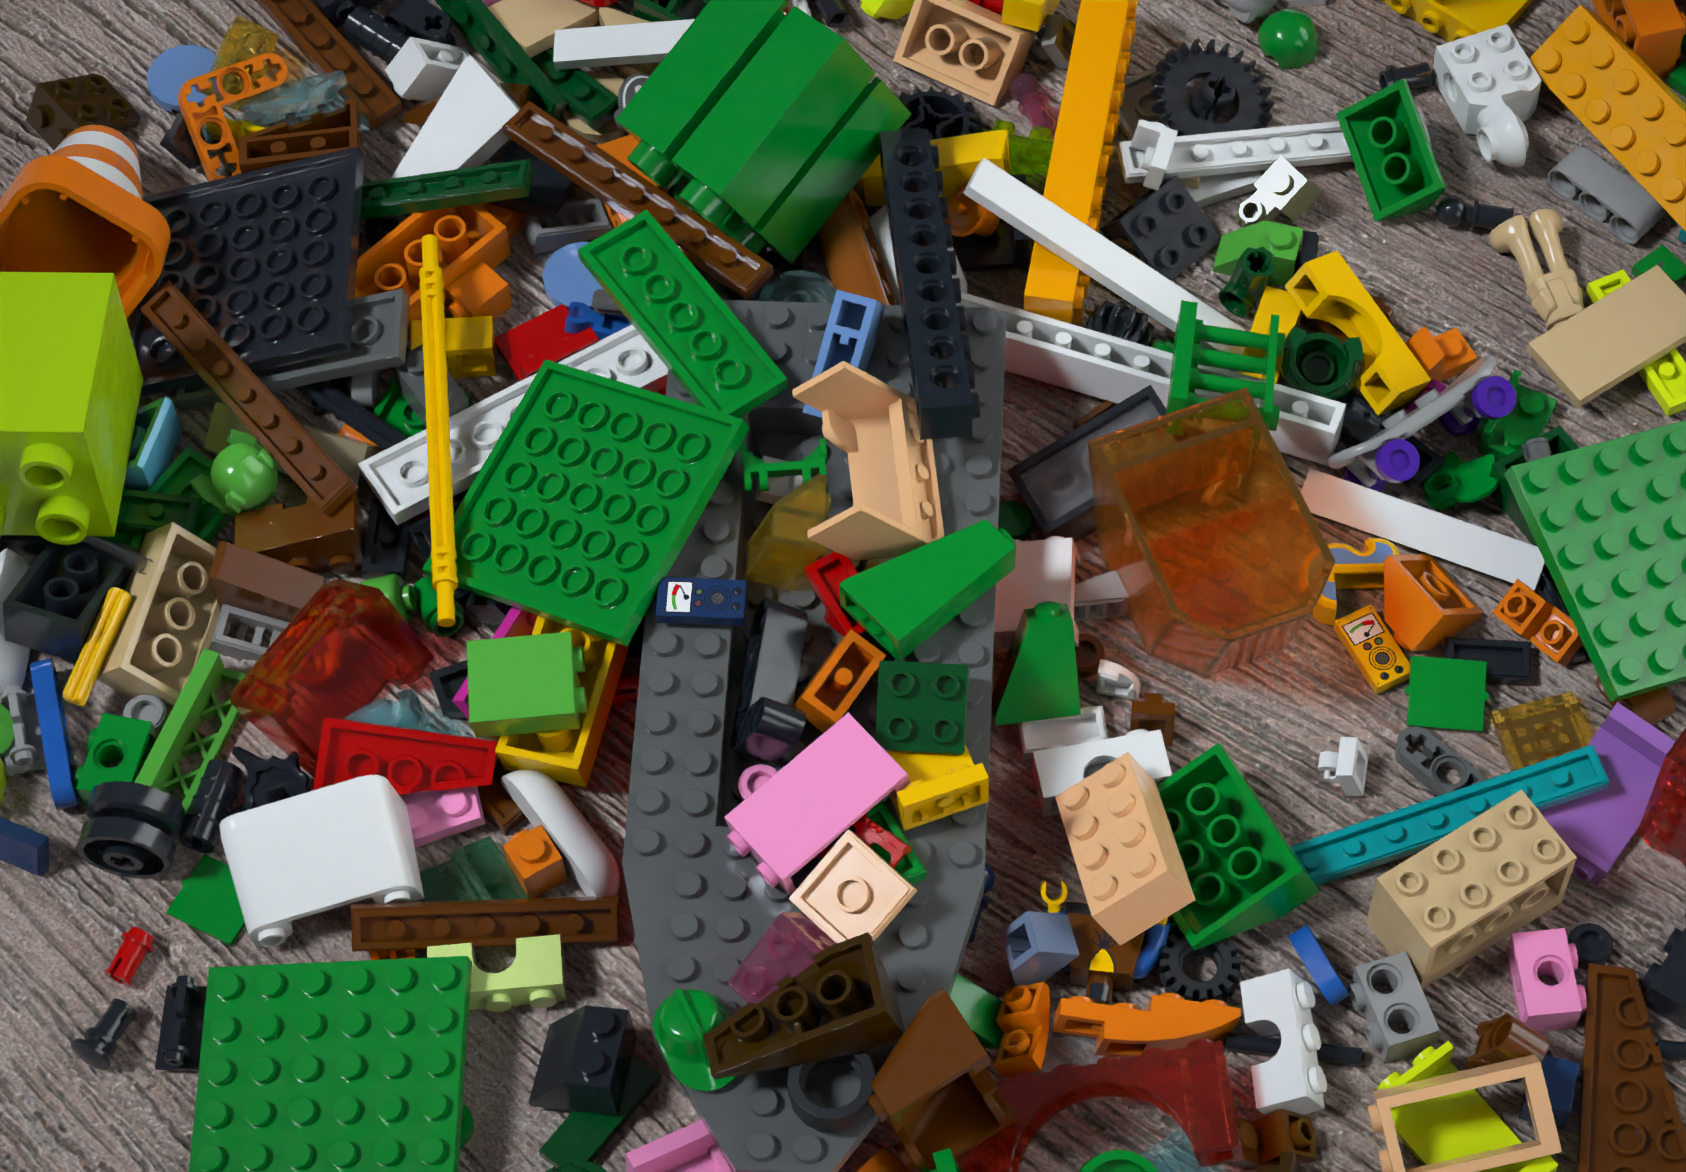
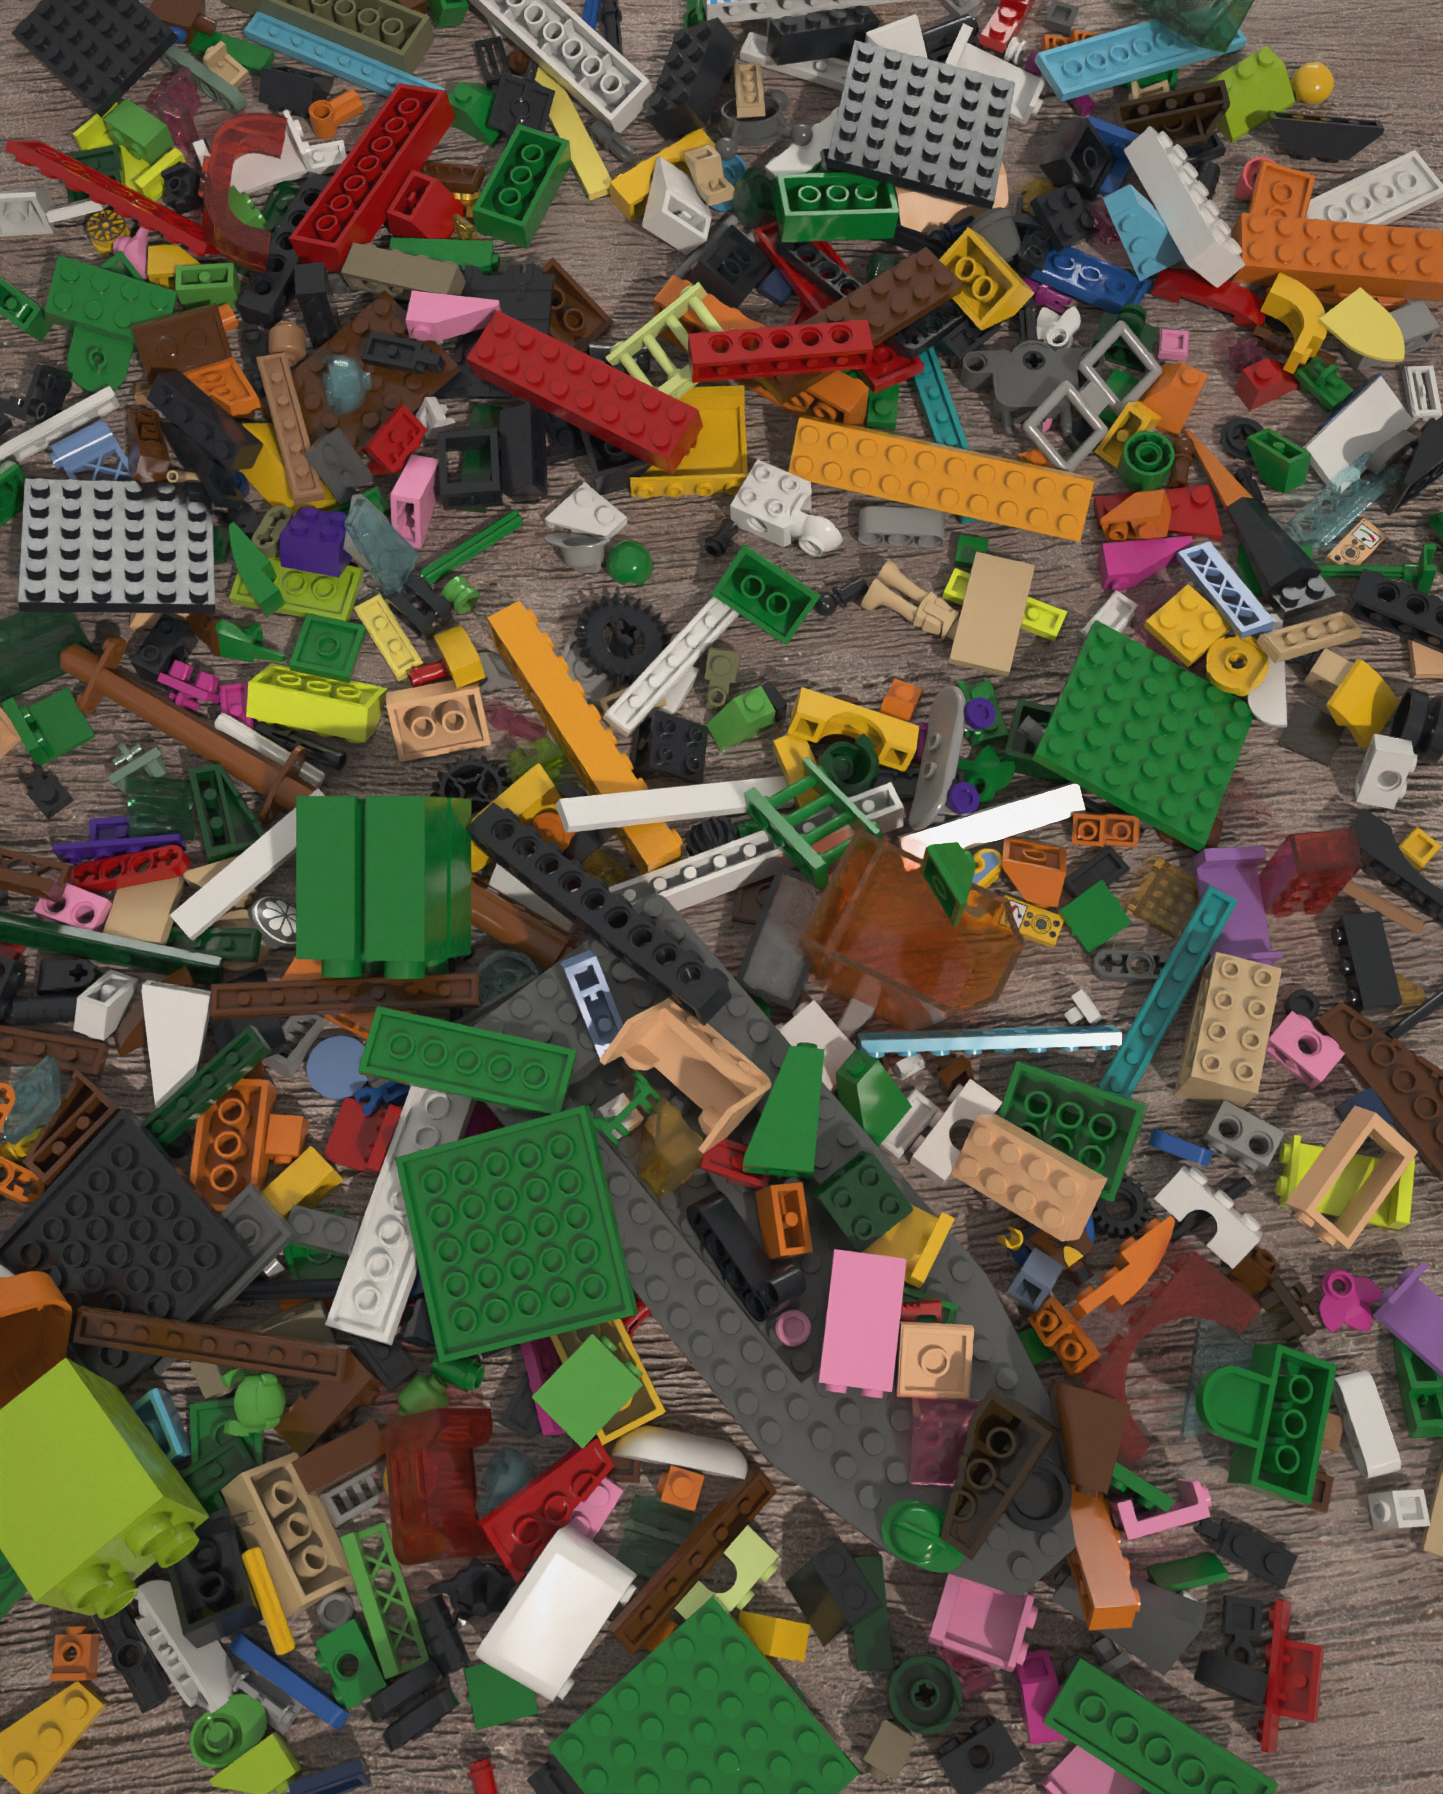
camera: 45 degrees left, 10 degrees up
(438, 432) = (450, 1344): yellow axle -> none
(497, 1060) = (776, 1636): none -> yellow slope
(701, 601) = (659, 1244): dark blue tile -> none
(987, 282) = (605, 868): none -> clear yellow bracket
(1158, 144) = (639, 702): white bracket -> none
(1230, 725) = (1001, 1039): none -> medium azure plate
(1248, 281) = (757, 745): dark green piece -> none
(1290, 485) = (949, 876): none -> green slope
(1506, 1040) = (1325, 1110): reddish brown piece -> none

